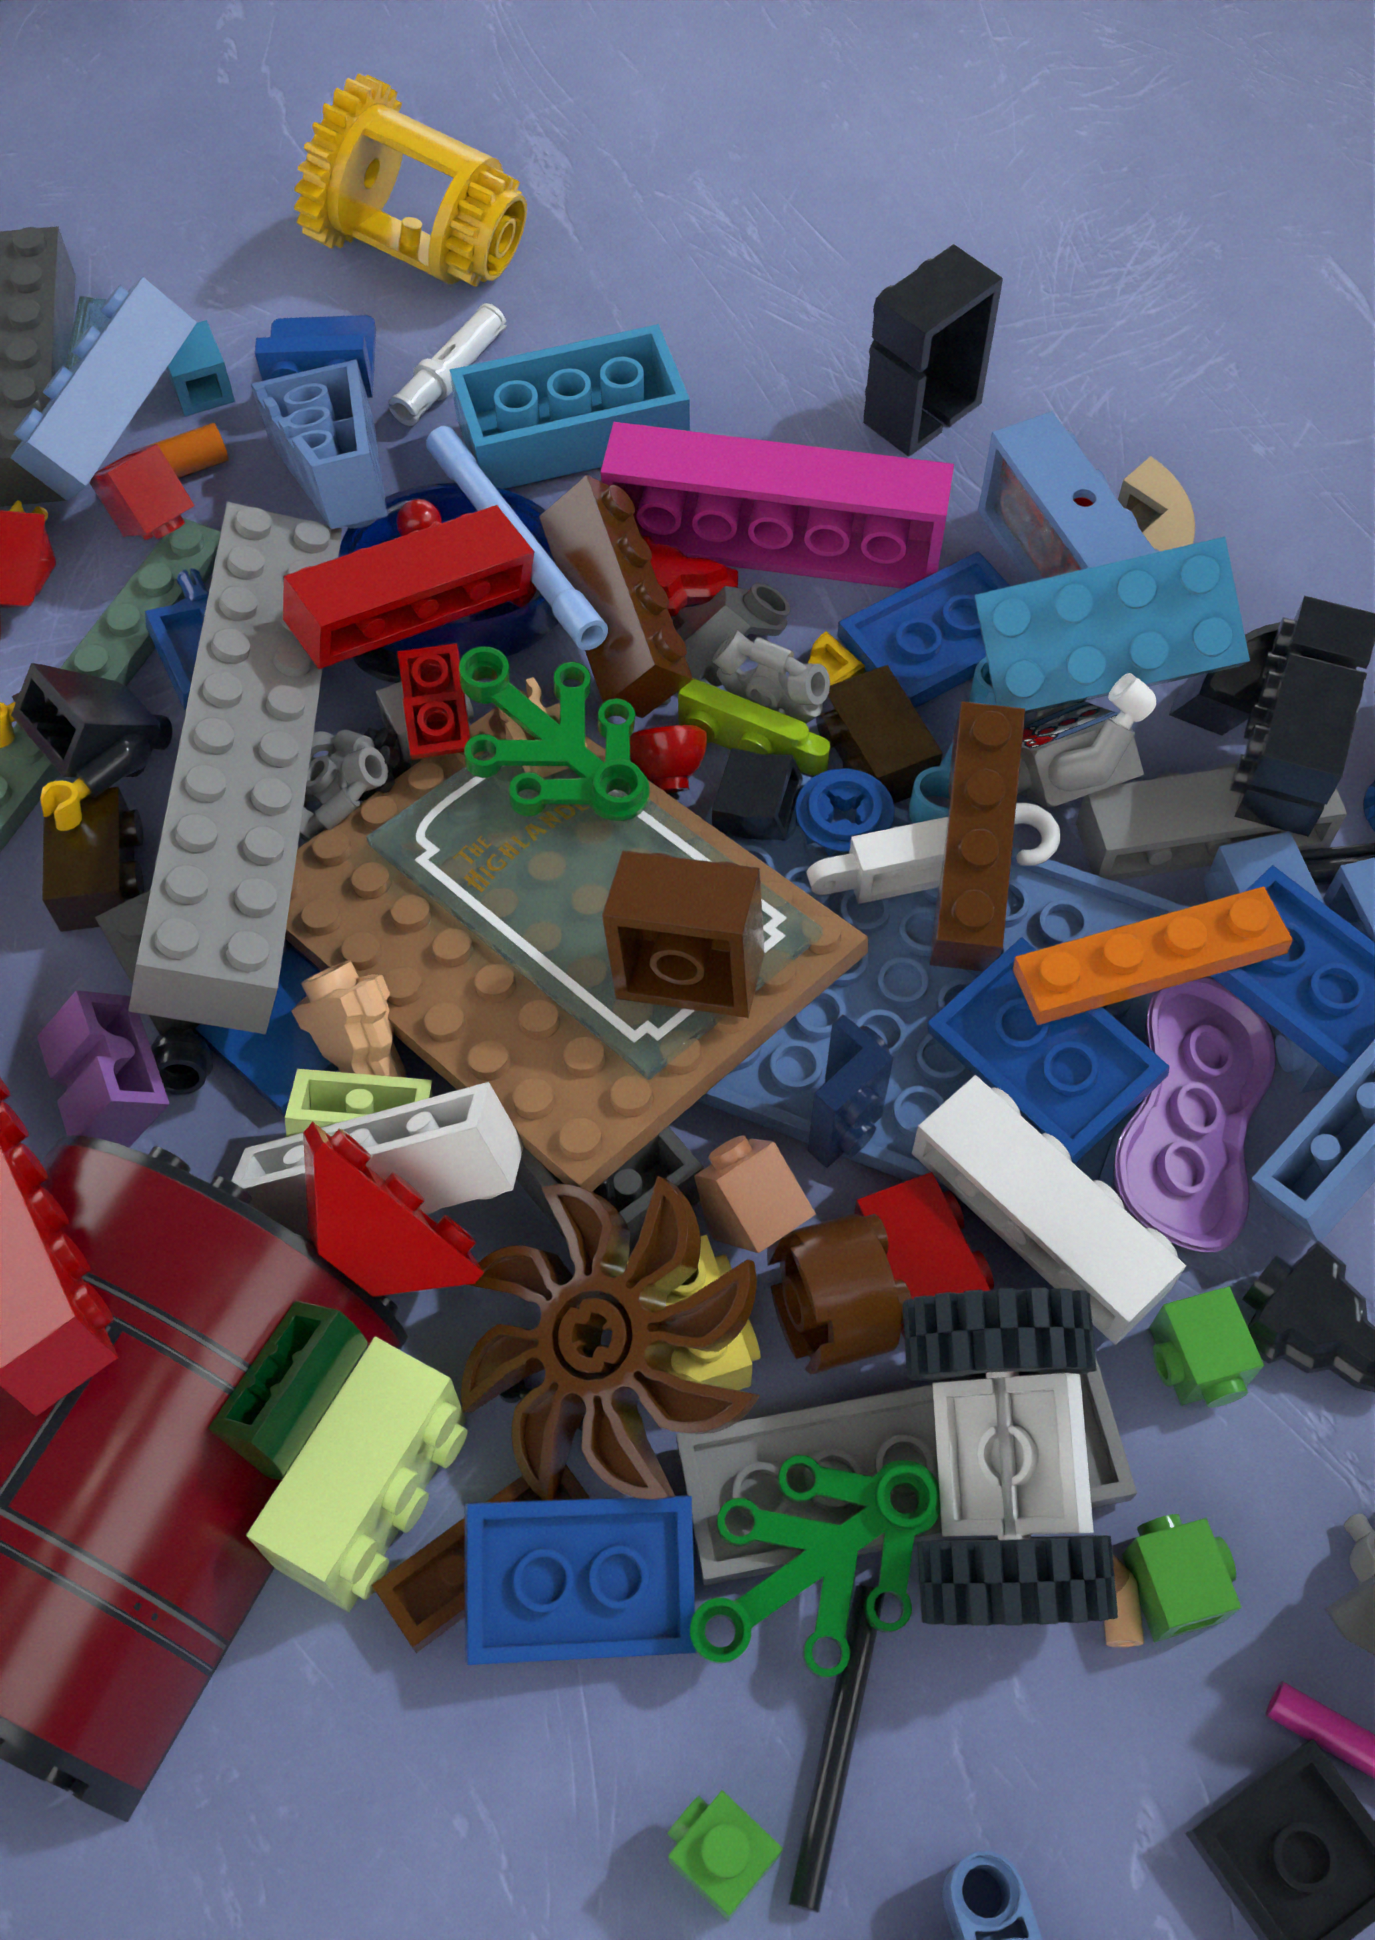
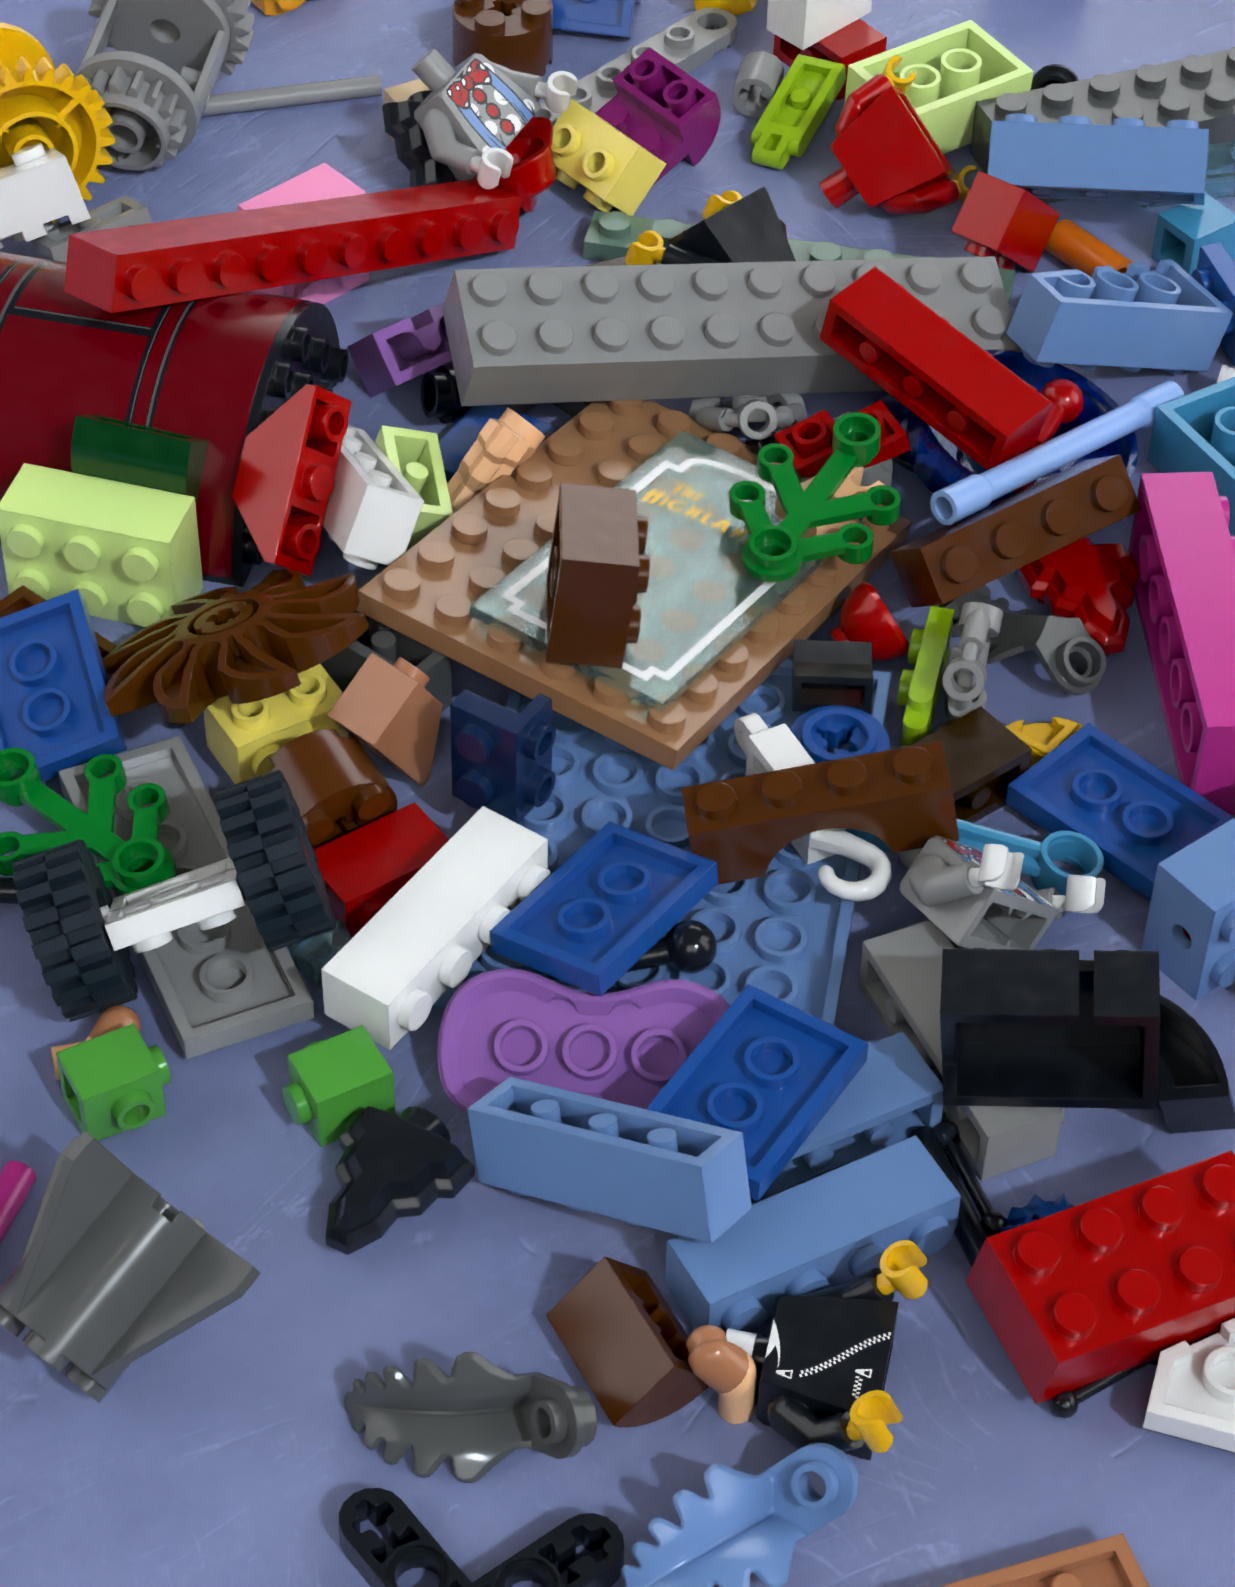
camera: 75 degrees right, 15 degrees down
(1087, 628) = (1102, 856): dark azure brick -> none
(1151, 955) = (718, 947): orange plate -> none

